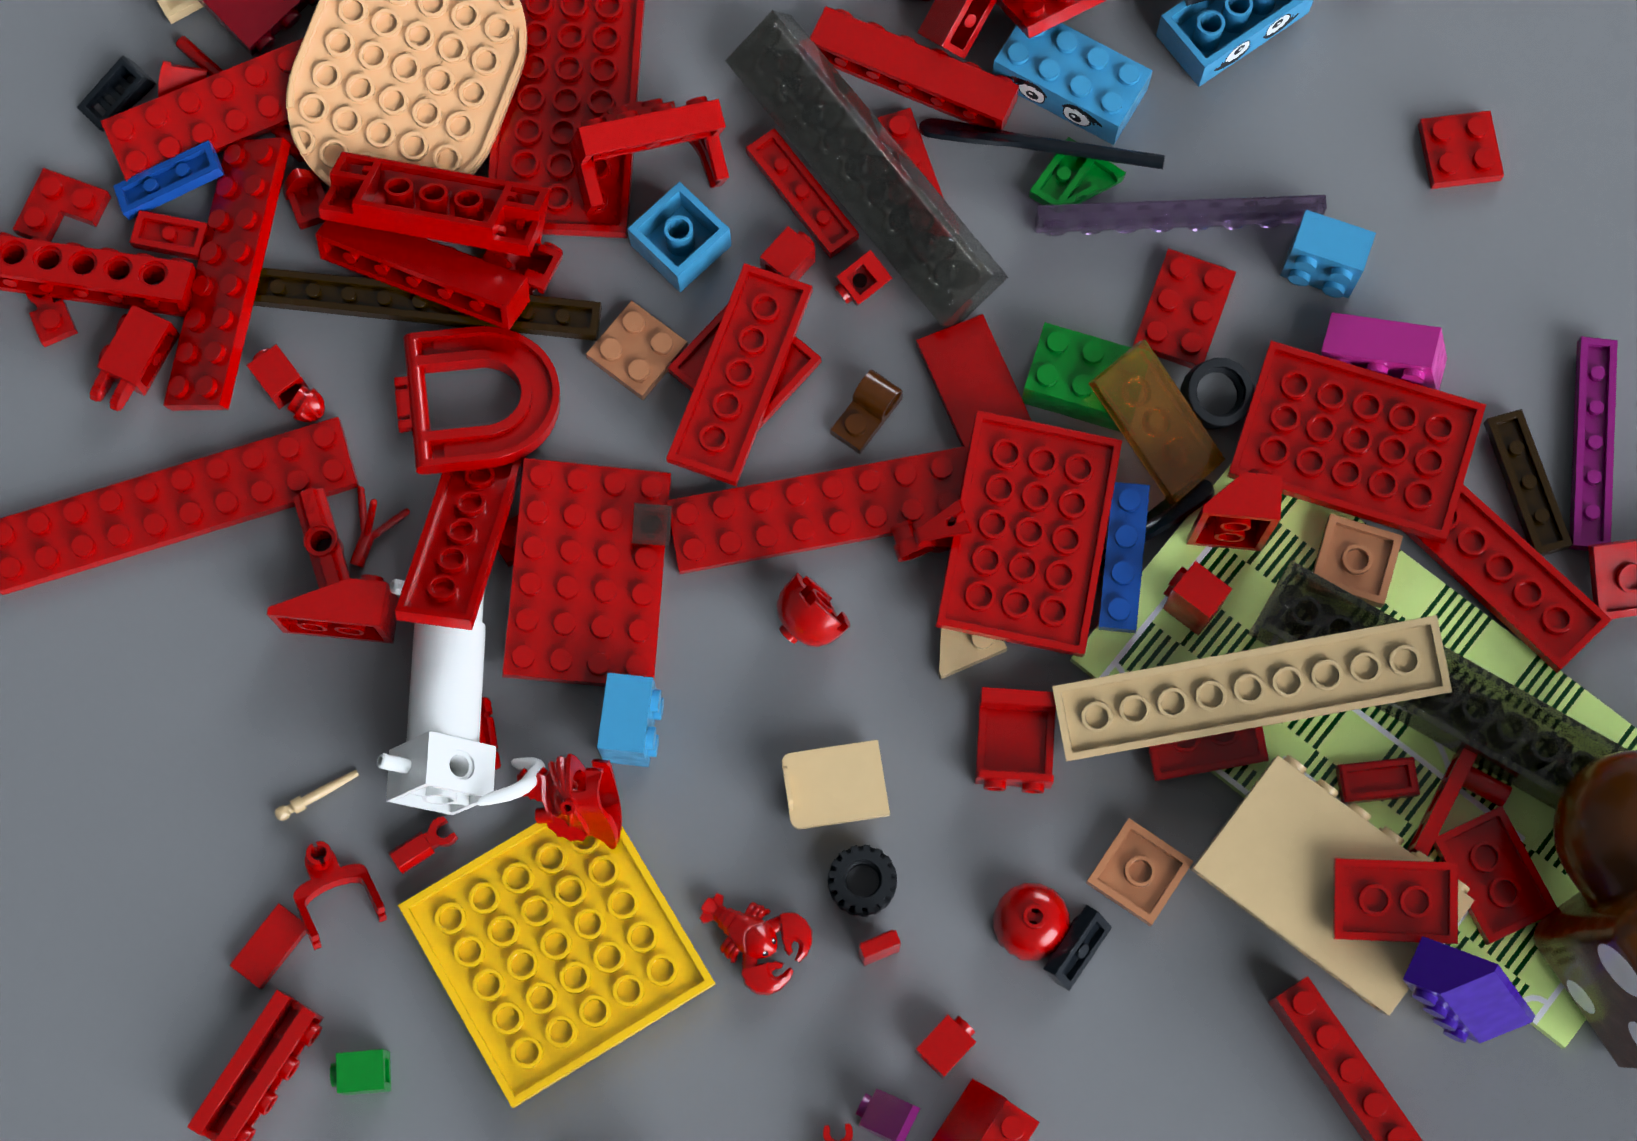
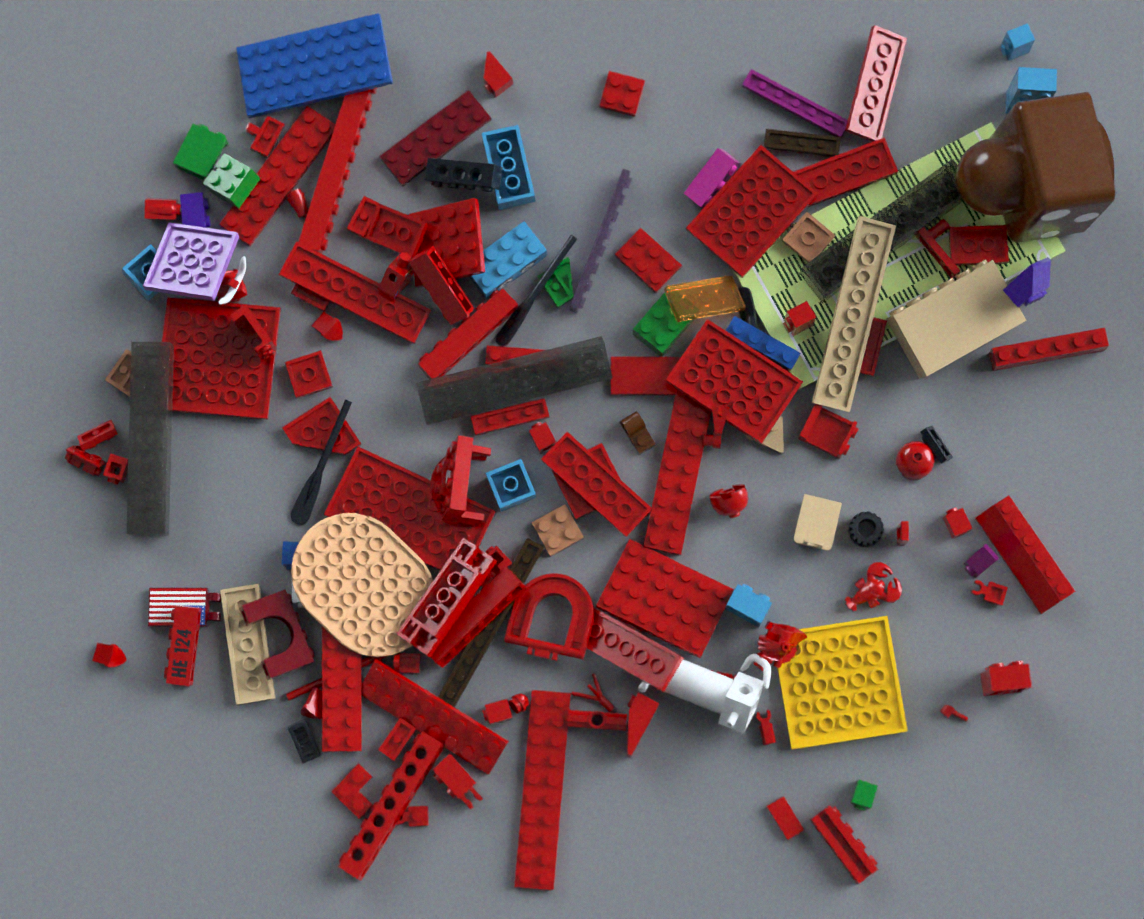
camera: 65 degrees left, 5 degrees up
(168, 180) = (368, 729): blue plate -> none
(299, 803) = (721, 780): tan piece -> none
(327, 876) = (762, 779): red piece -> none
(651, 524) = (656, 557): clear smoke plate -> none
(871, 269) = (574, 404): red brick -> none
(1139, 872) = (912, 401): nougat plate -> none
(1240, 513) = (769, 278): red slope -> none
(1241, 381) = (708, 254): black tyre -> none
(1327, 254) = (654, 182): dark azure brick -> none
(1377, 780) = (914, 276): red tile -> none
(1395, 900) = (980, 294): red plate -> none

